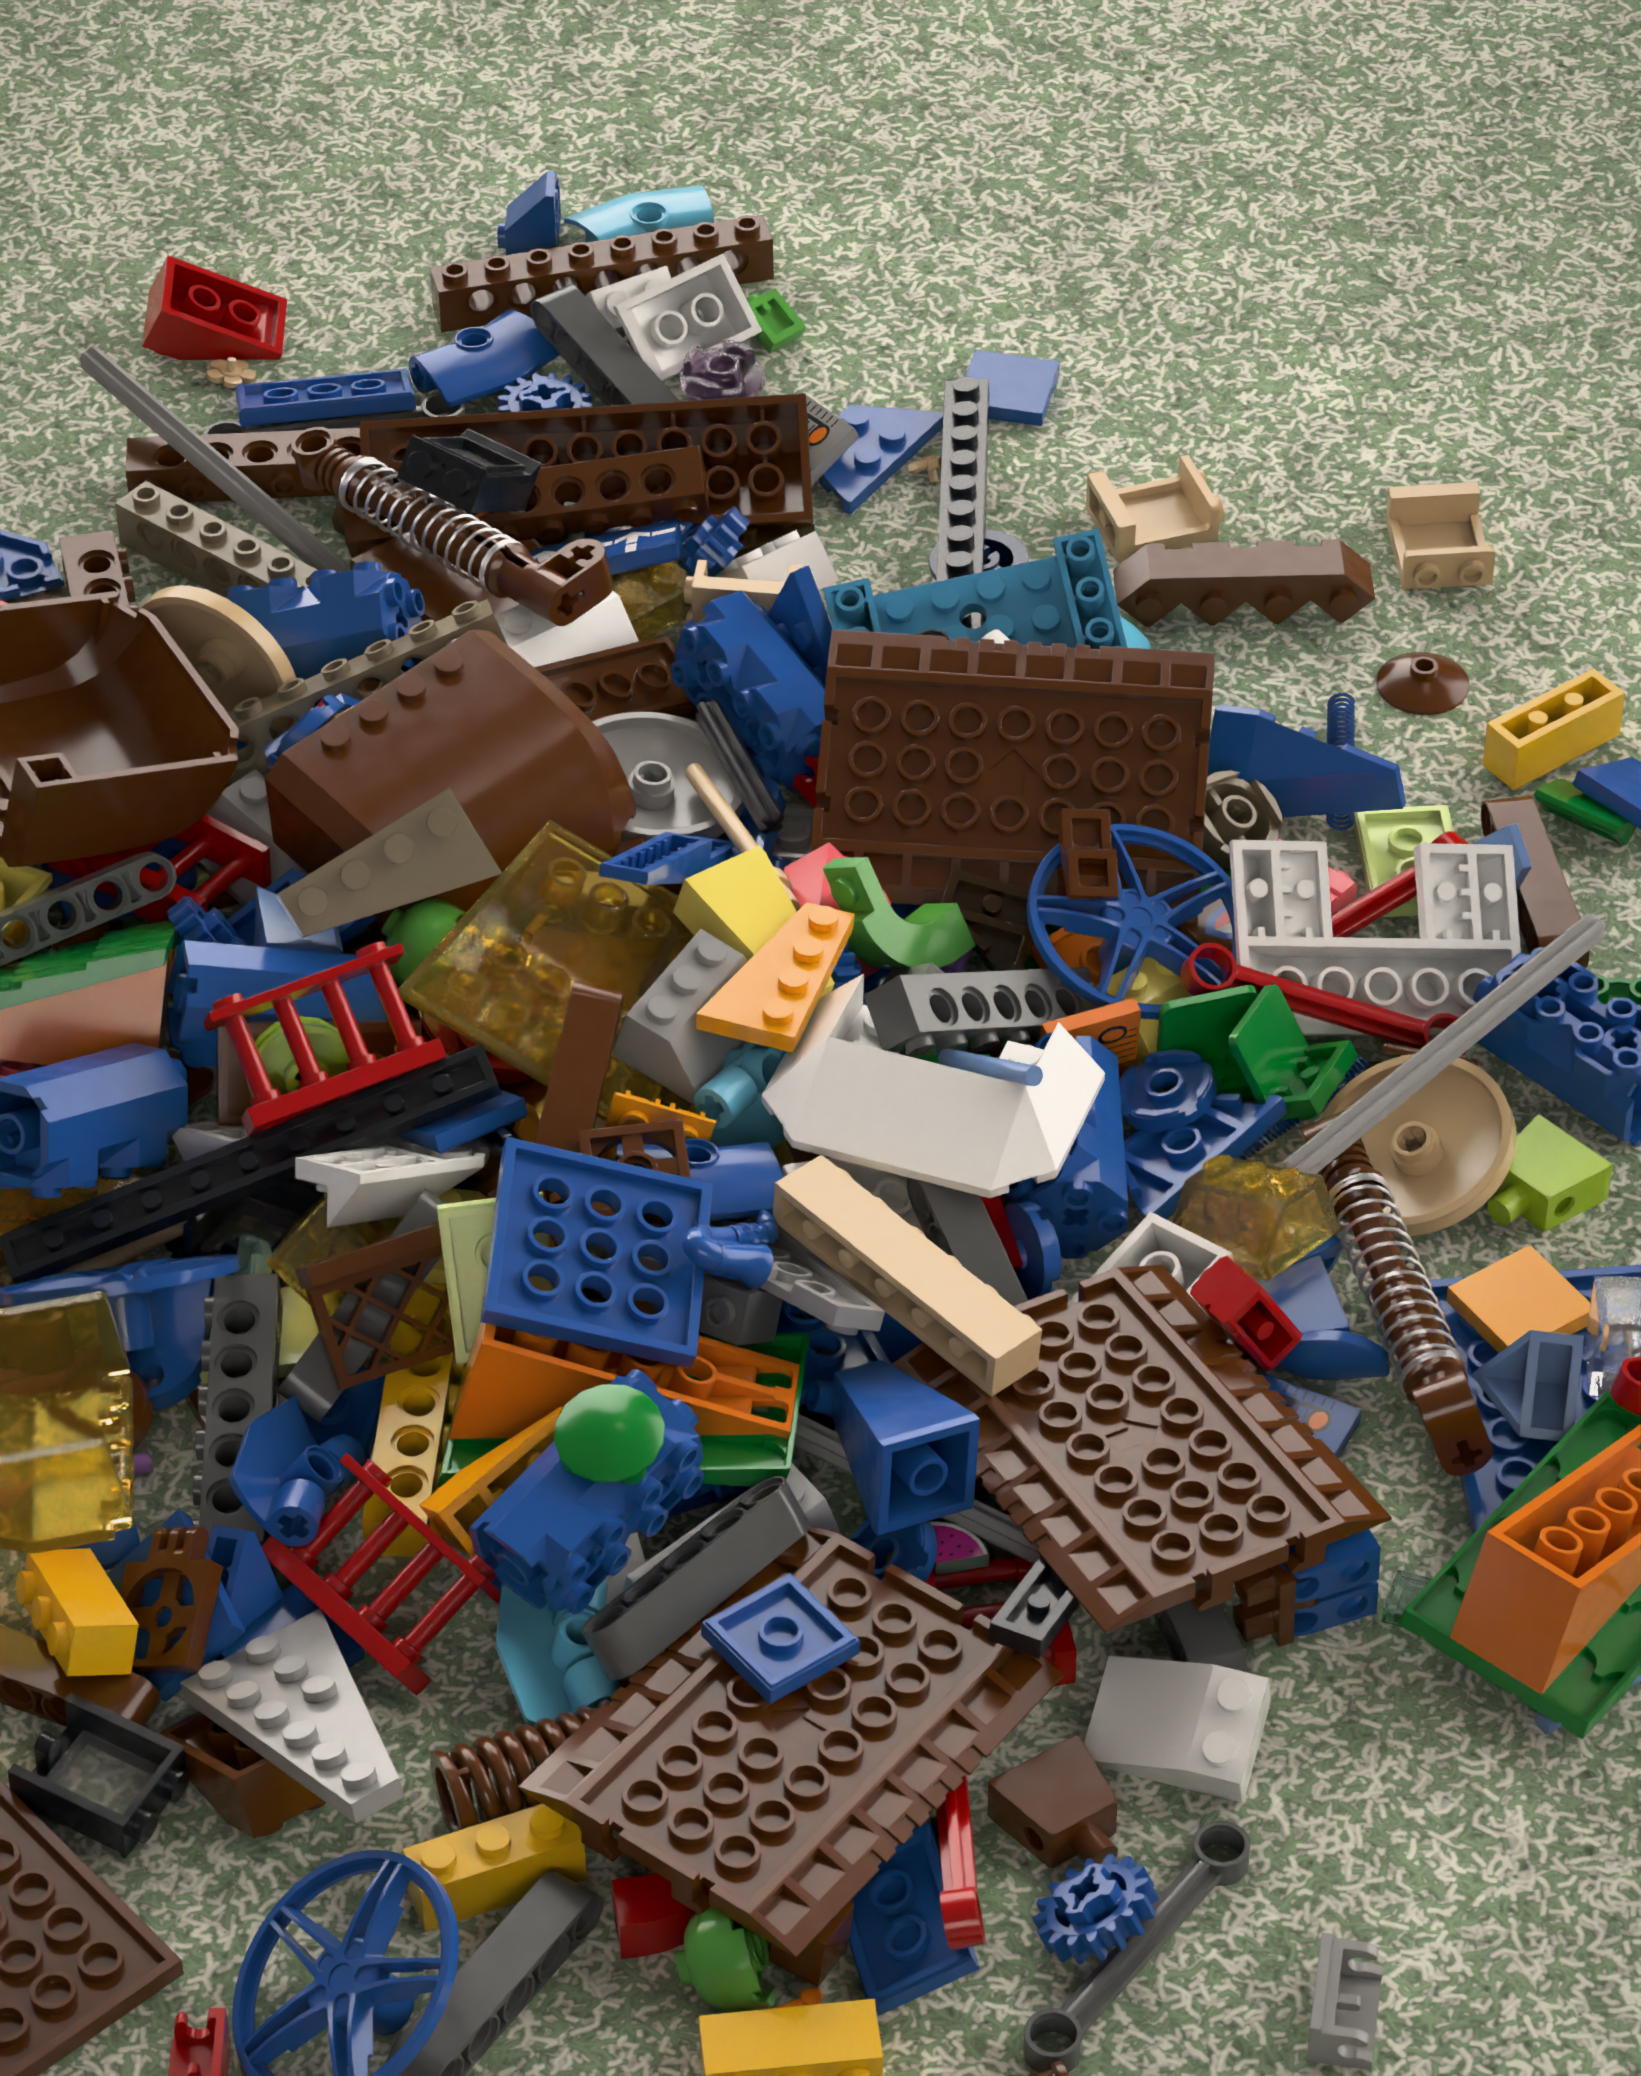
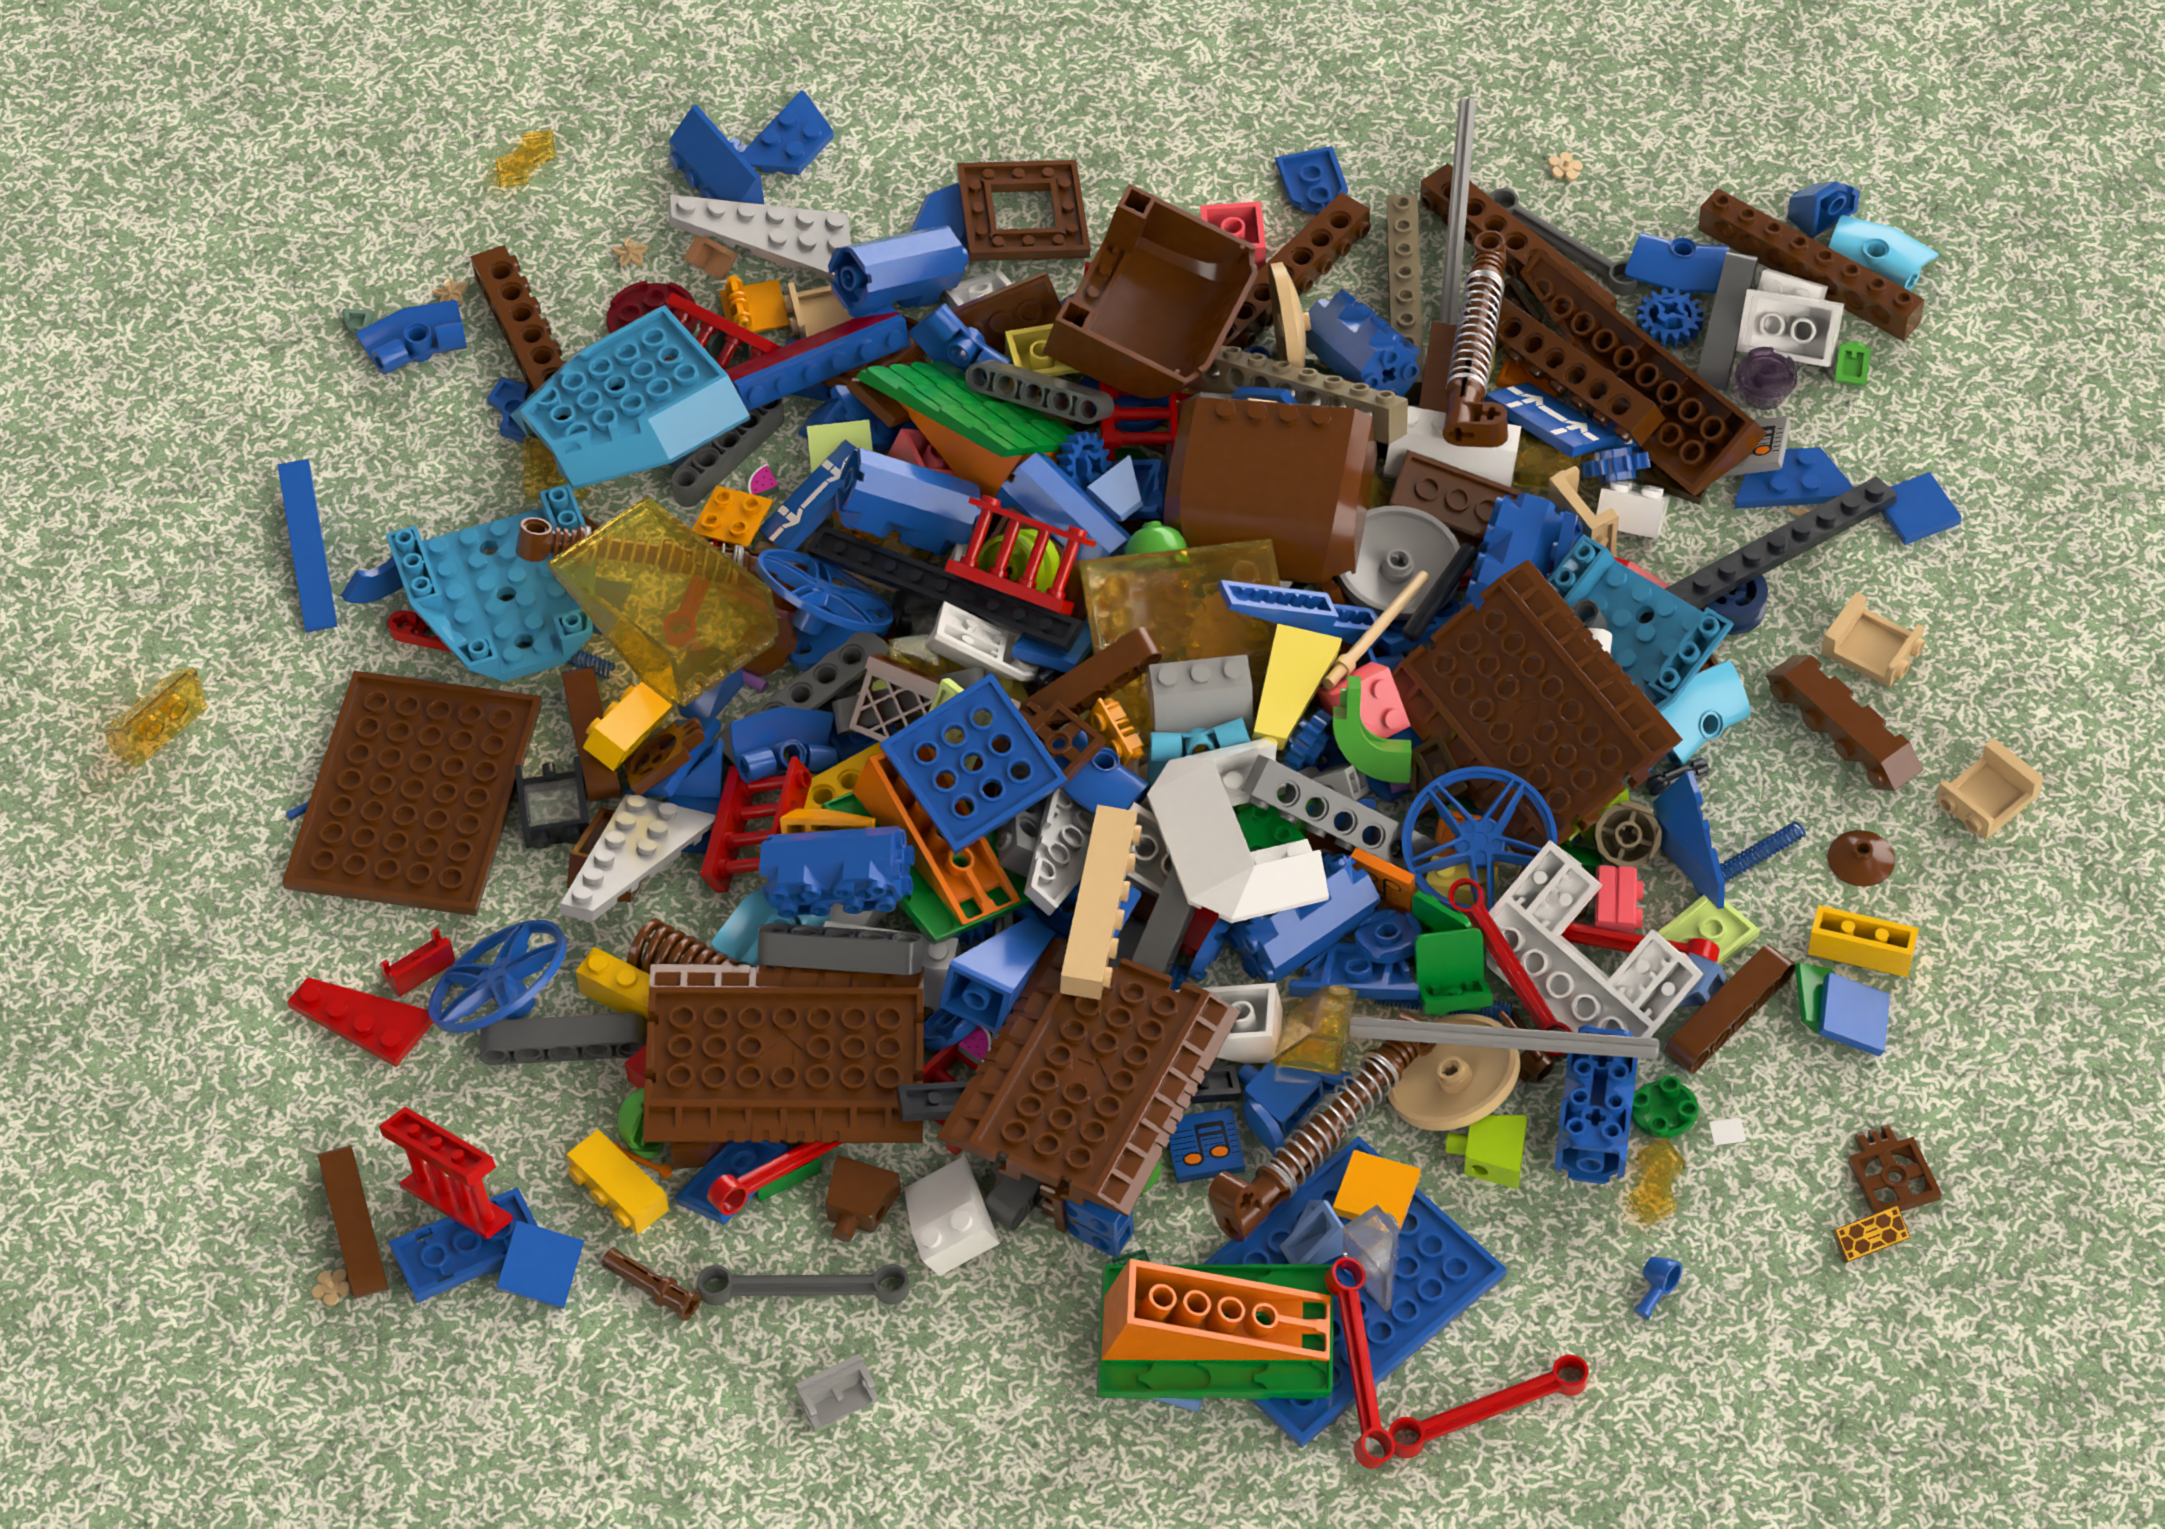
camera: 55 degrees right, 10 degrees up
(211, 316) = (1594, 127): red slope -> none
(253, 1254) = (902, 631): sand green tile -> none
(308, 724) = (1240, 393): blue tile -> none
(325, 397) = (1577, 219): blue tile -> none
(401, 864) = (1170, 502): dark tan wedge -> none
(470, 472) = (1523, 323): black window -> none
(609, 1434) = (846, 847): green dish -> none
(735, 1250) = (1026, 813): blue piece -> none
(780, 1638) = (826, 1007): blue tile -> none
(782, 982) = (1246, 715): light orange wing -> none
(992, 1067) = (1265, 842): medium blue bar -> none
(1087, 854) = (1484, 786): reddish brown slope -> none
(1095, 1909) = (802, 1250): blue gear -> none
(1246, 1313) = (1227, 1067): red brick -> none

